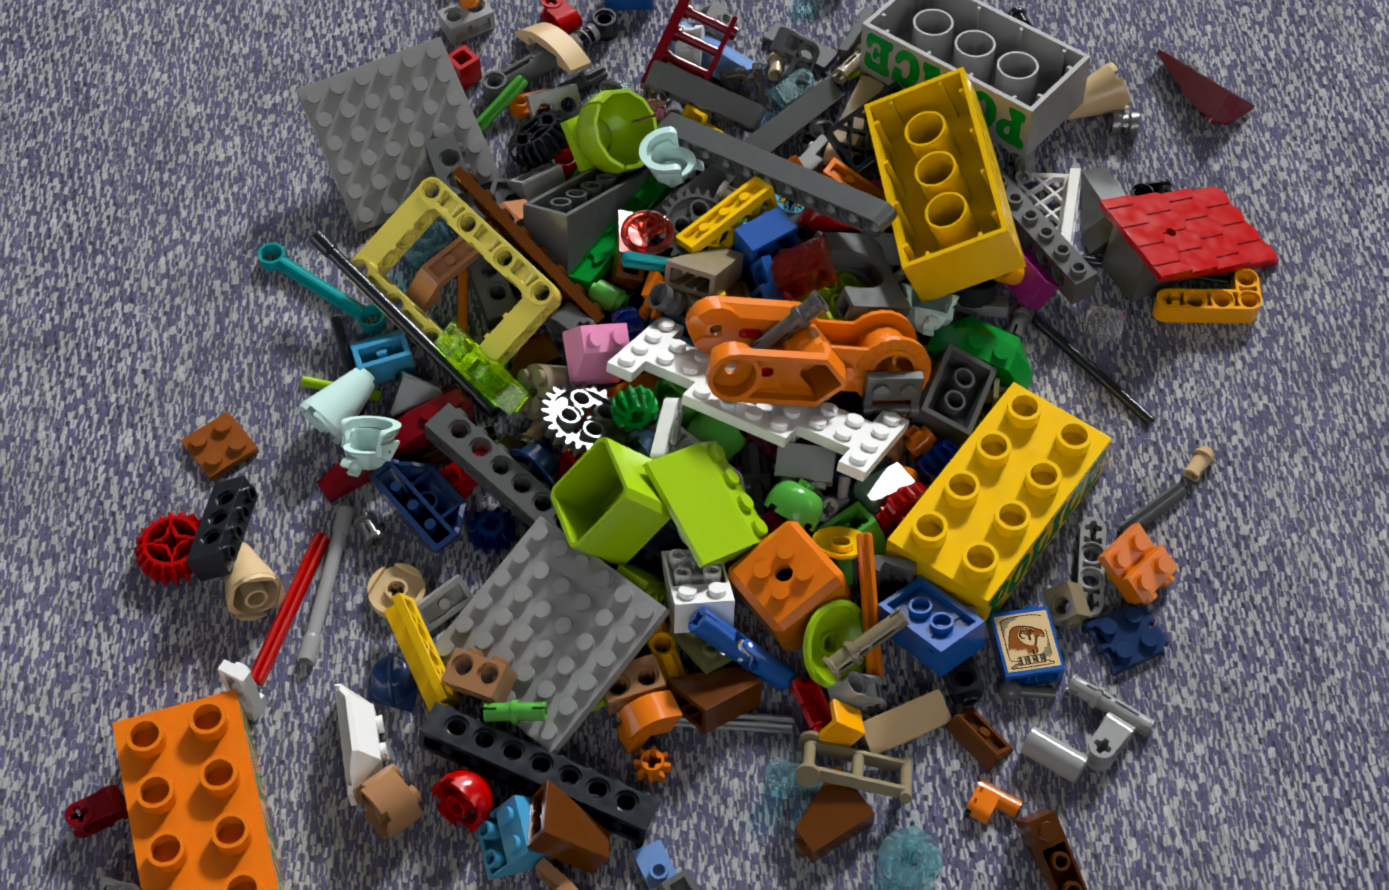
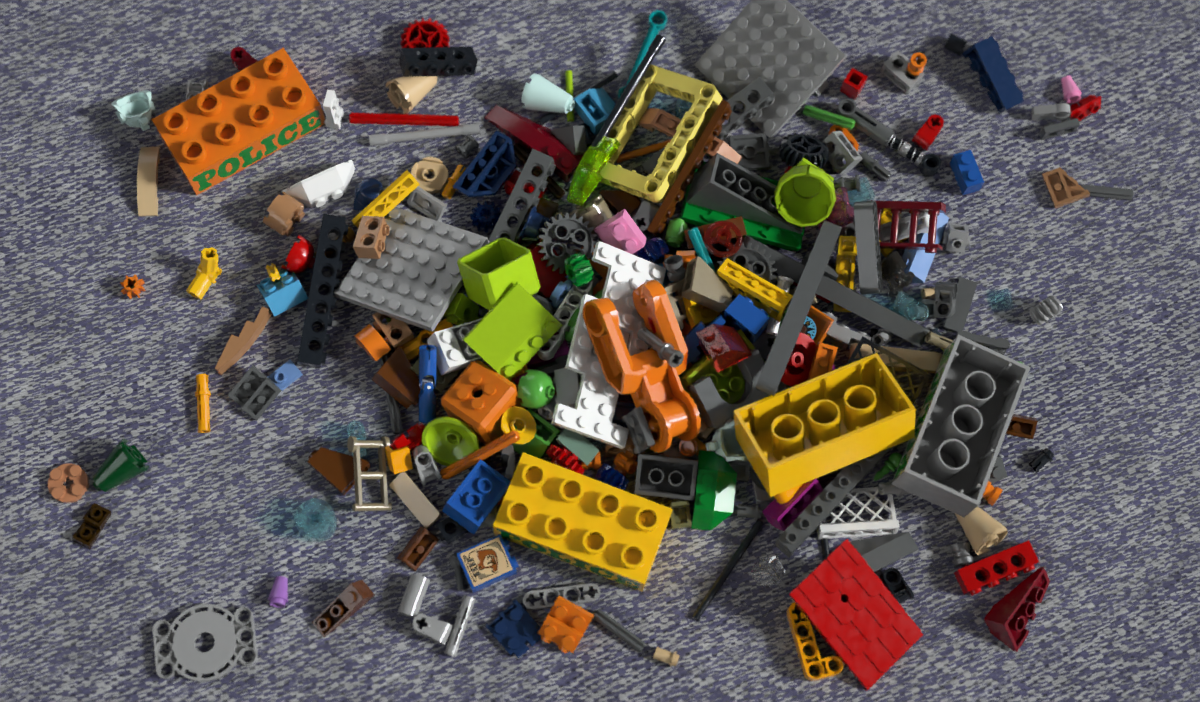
camera: 70 degrees right, 15 degrees up
(219, 446) = (506, 41): dark orange plate -> none
(368, 442) = (517, 120): light aqua helmet -> none
(420, 560) = (449, 191): none -> light orange axle
(481, 840) = (273, 272): none -> yellow axle
(515, 711) = (350, 263): bright green pin -> none
(537, 181) = (767, 161): light grey slope -> none
(566, 830) = (286, 316): reddish brown slope -> none
(567, 52) = (893, 137): tan slope -> none
(656, 773) = (342, 353): orange gear -> none
(667, 159) = (796, 235): light aqua helmet -> none
(667, 427) = (564, 295): white beam -> none
(854, 651) = (440, 451): dark tan pin -> none
(987, 799) = (375, 561): orange piece -> none
(1059, 596) = (522, 583): dark tan brick -> none
(1149, 95) = (1022, 552): none -> red brick

